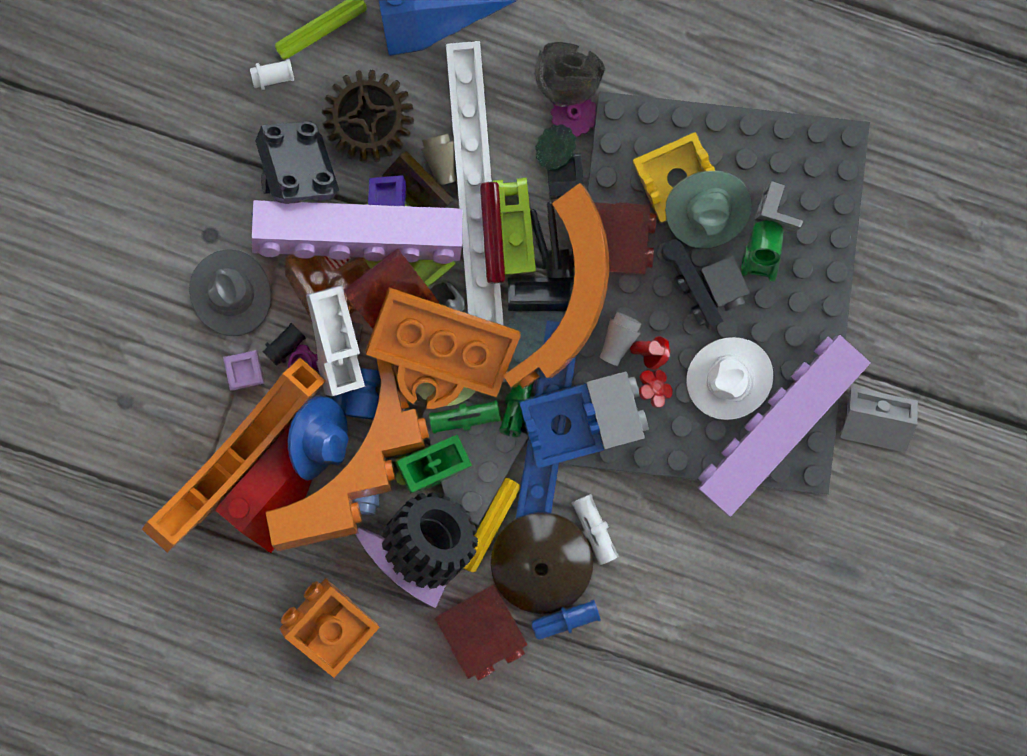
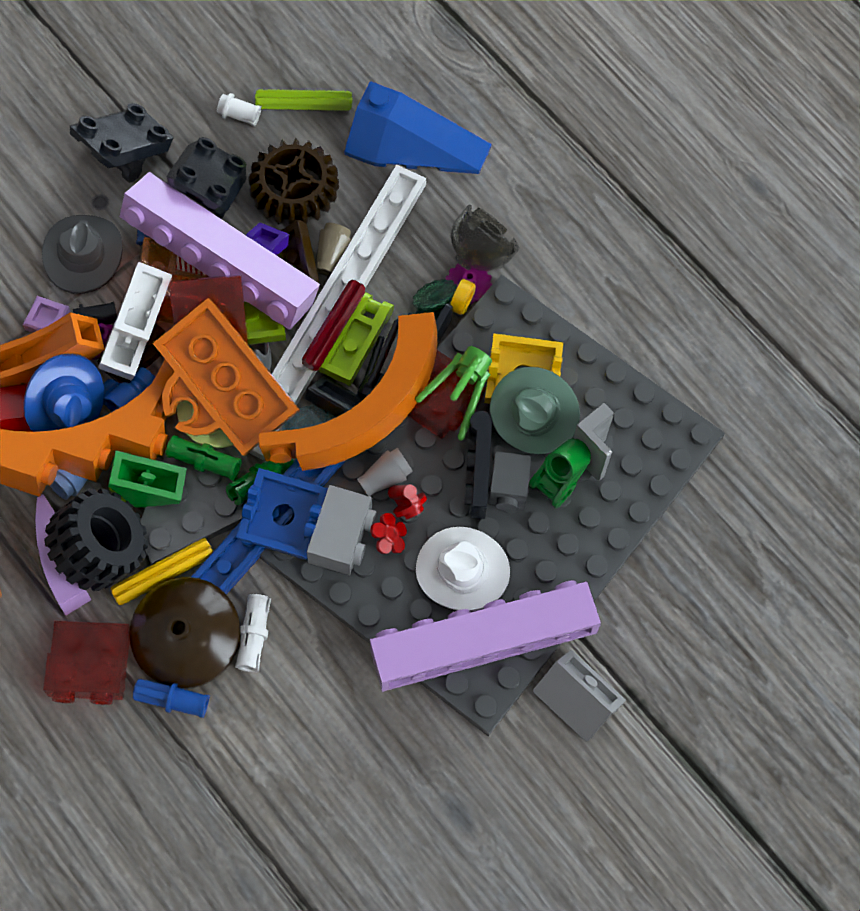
camera: 30 degrees right, 20 degrees down
(194, 170) = (123, 139): none -> black shield
(582, 135) = (463, 296): none -> yellow tile
(641, 211) = (471, 368): none -> bright green plant

